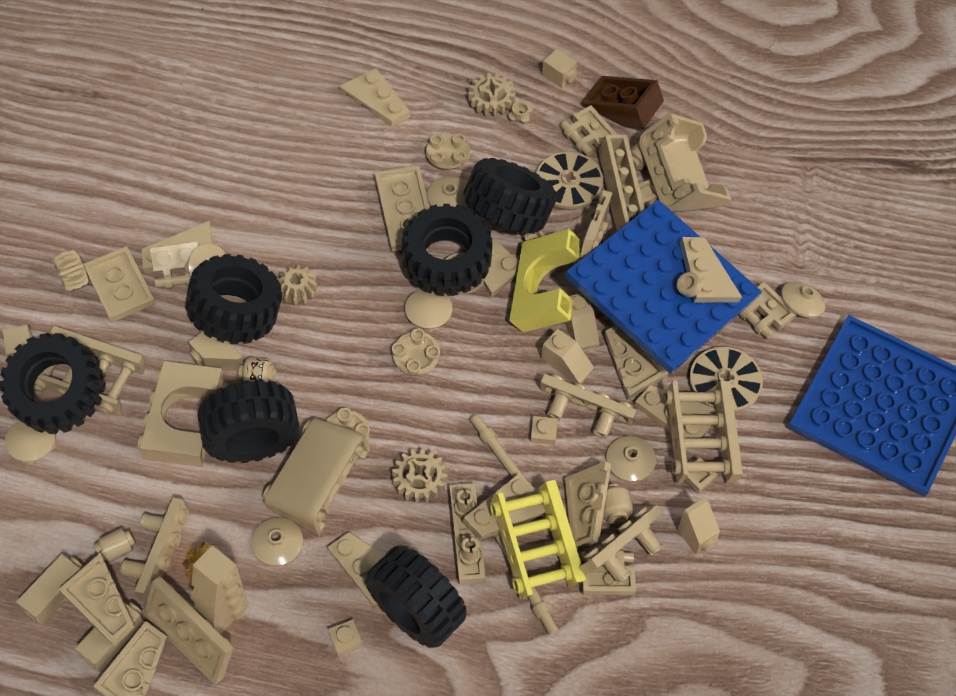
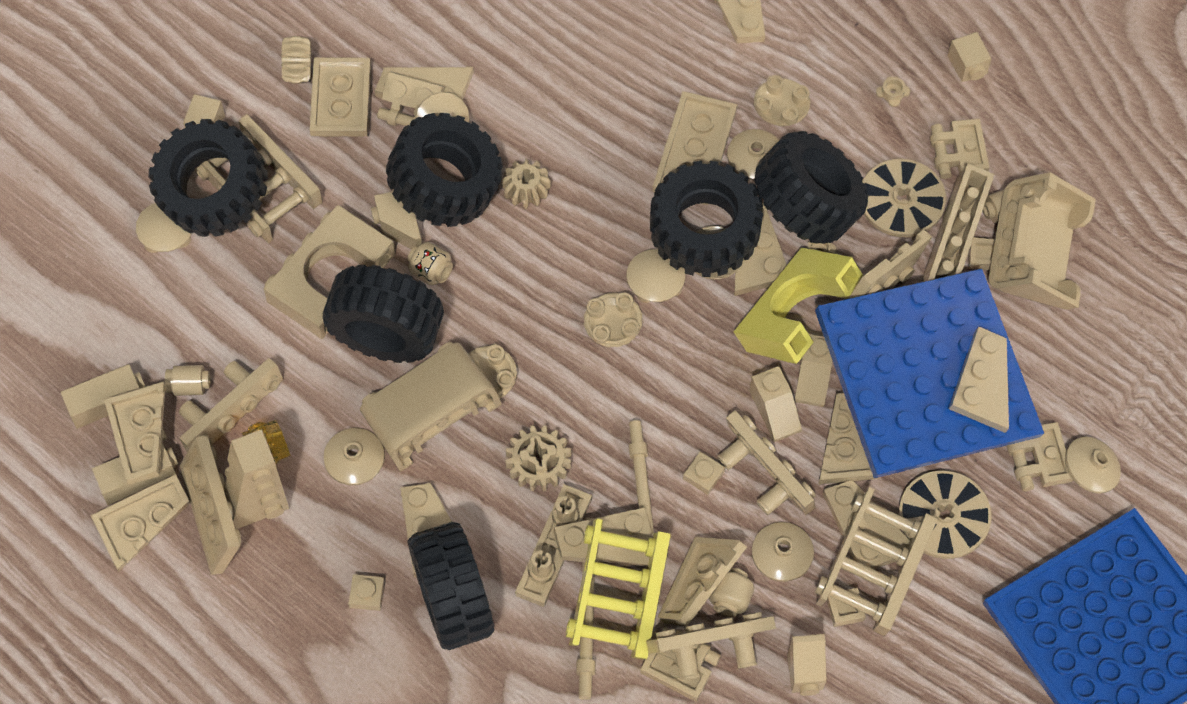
camera: 30 degrees right, 5 degrees up
(492, 94) = (859, 47): tan gear -> none
(625, 100) = (1025, 130): reddish brown slope -> none
(689, 284) = (952, 386): tan tile -> none

